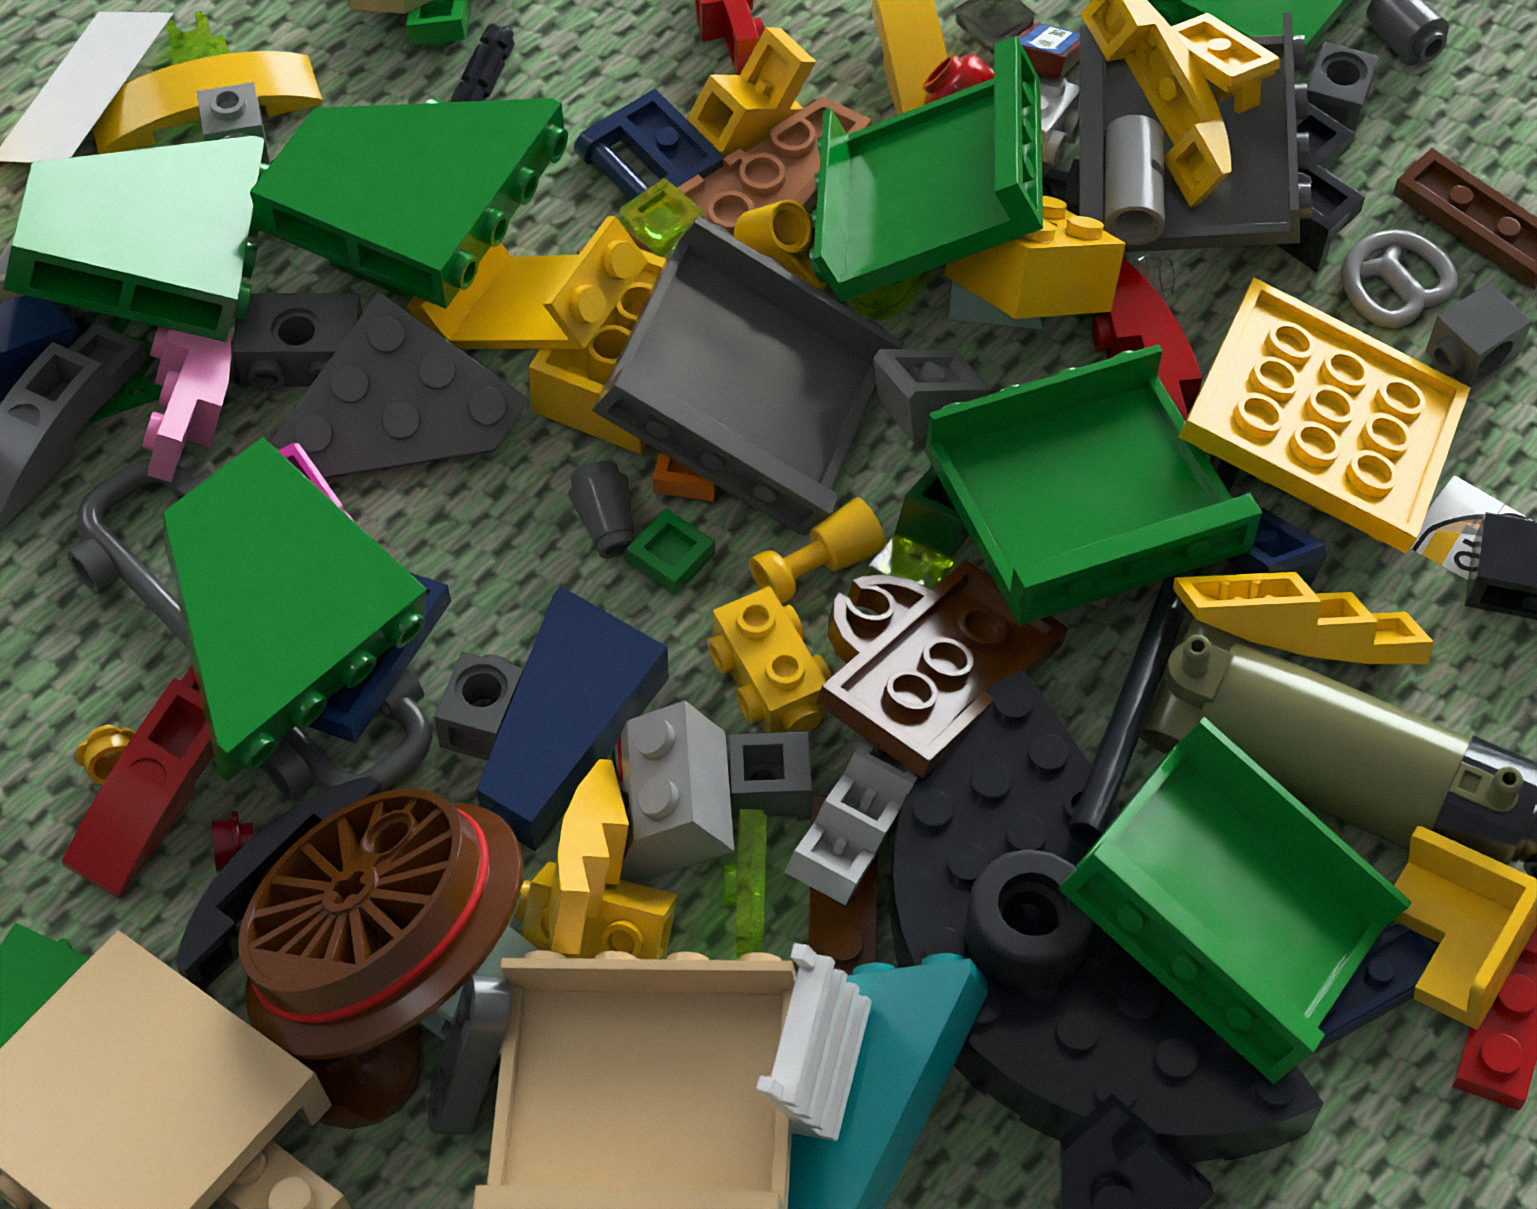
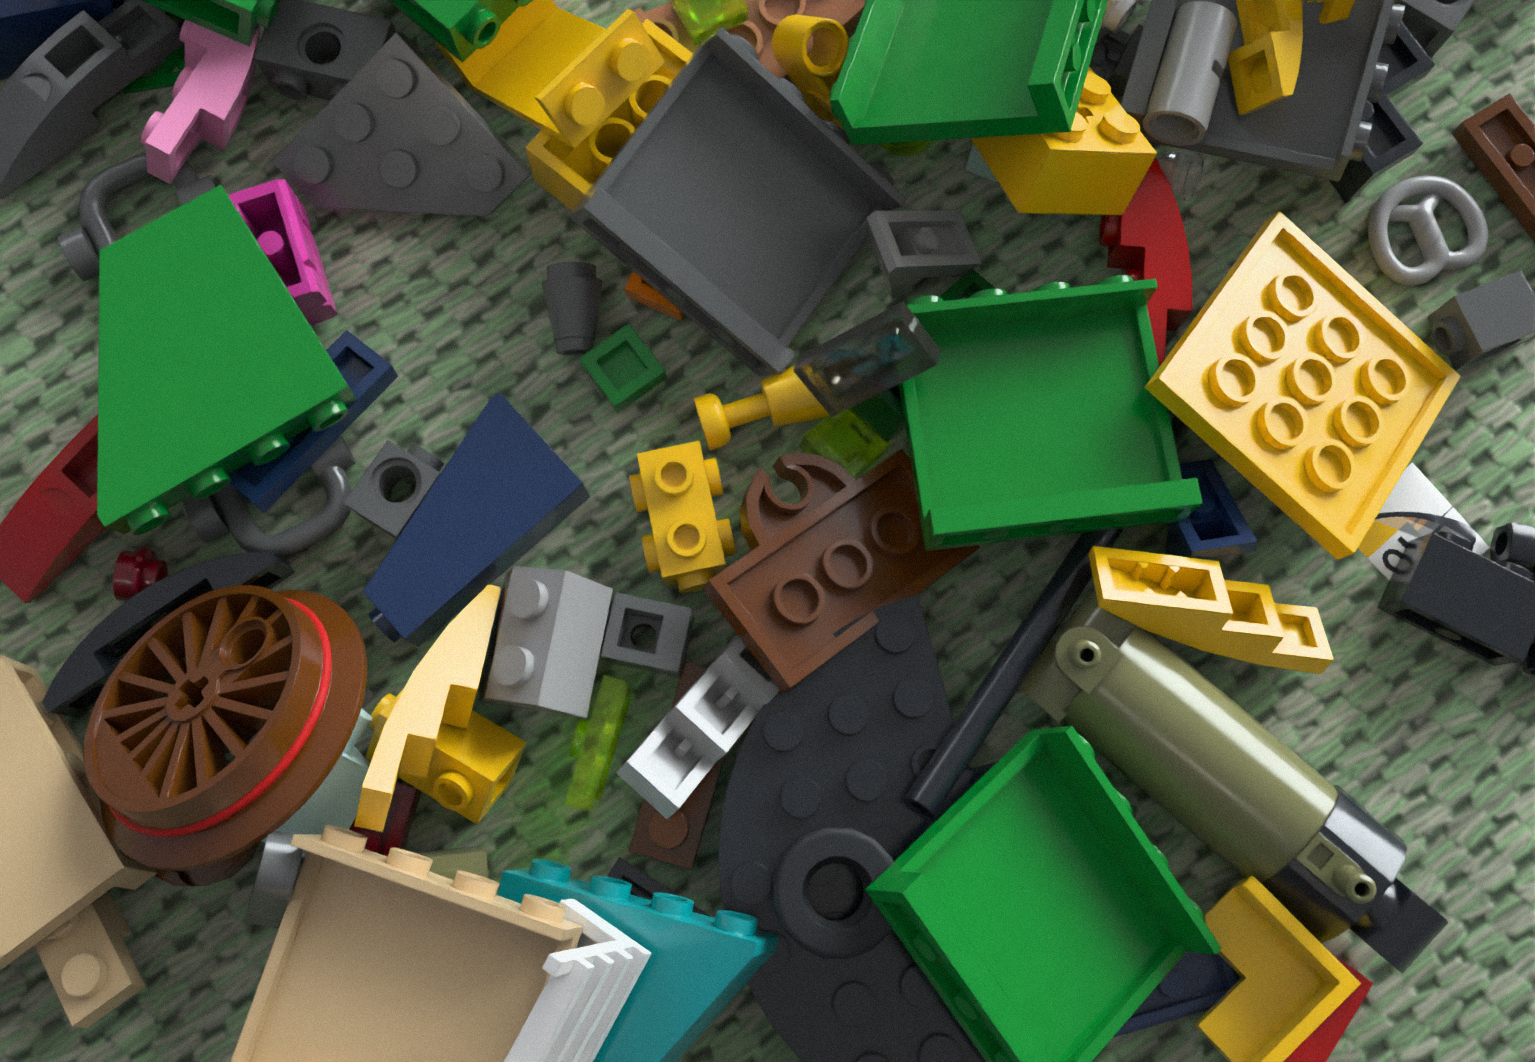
camera: 15 degrees right, 20 degrees up
(102, 750) = (42, 449): yellow plate -> none
(913, 469) = (867, 359): none -> clear smoke plate

